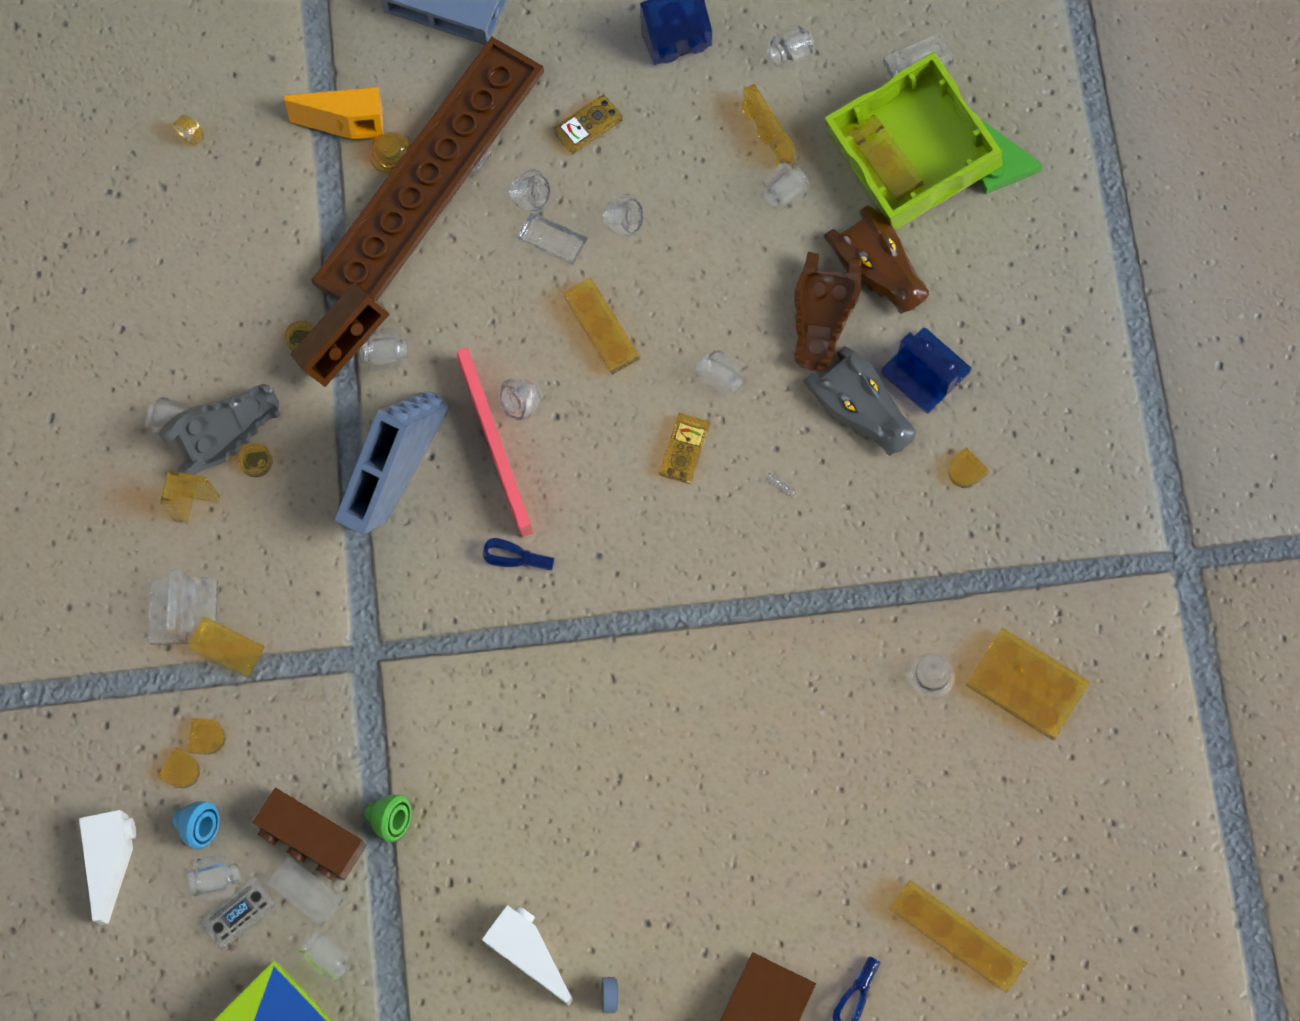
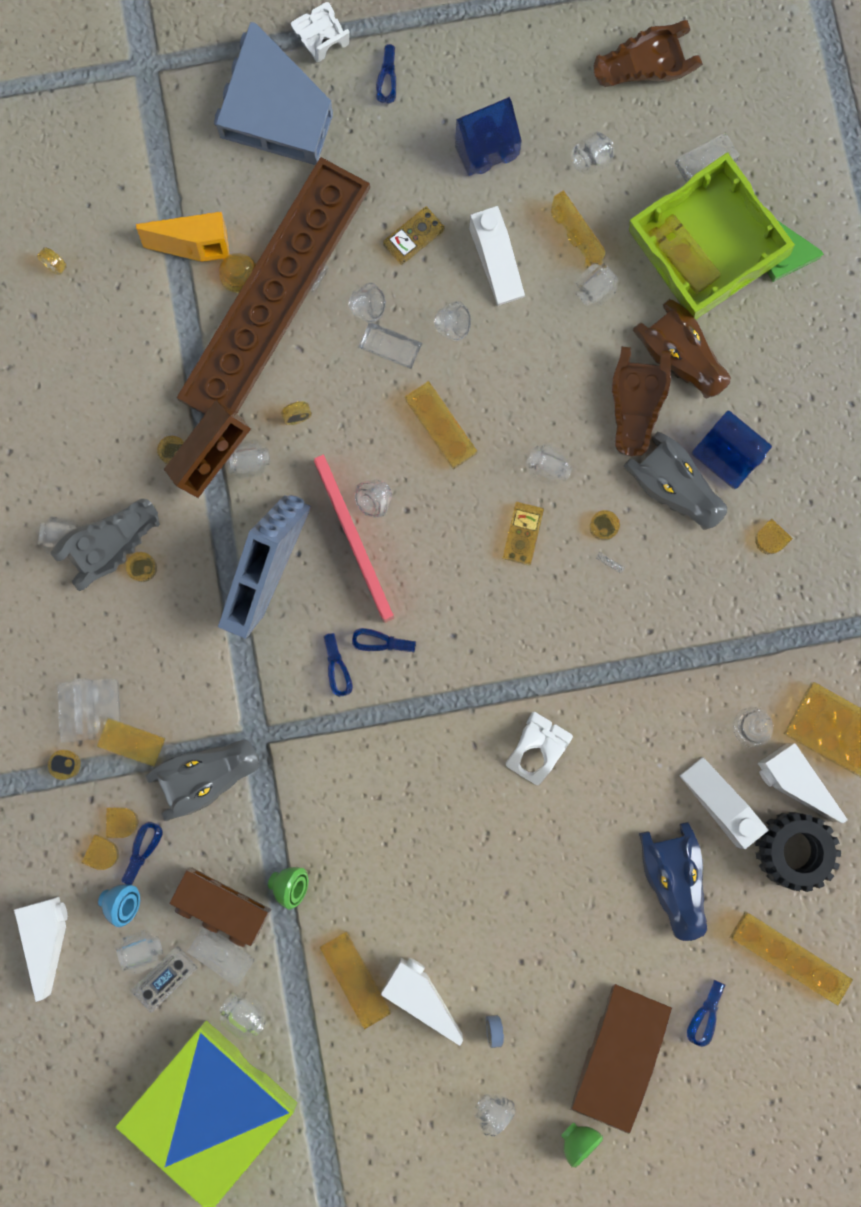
camera: 10 degrees left, 10 degrees up
(148, 668) = (64, 764): none -> clear yellow tile
(181, 490) = (75, 607): clear yellow panel -> none
(220, 779) = (136, 860): none -> clear blue piece
(299, 692) = (200, 777): none -> dark grey animal
(441, 303) = (296, 413): none -> clear yellow tile
(455, 929) = (355, 980): none -> clear yellow plate
(462, 569) = (335, 657): none -> clear blue piece
(677, 149) = (496, 255): none -> white slope
(688, 667) = (542, 735): none -> white piece
(777, 444) = (604, 525): none -> clear yellow tile
(831, 835) = (676, 876): none -> dark blue animal
(890, 757) = (724, 804): none -> white slope
(976, 736) = (794, 776): none -> white slope
(991, 793) = (821, 858): none -> black tyre

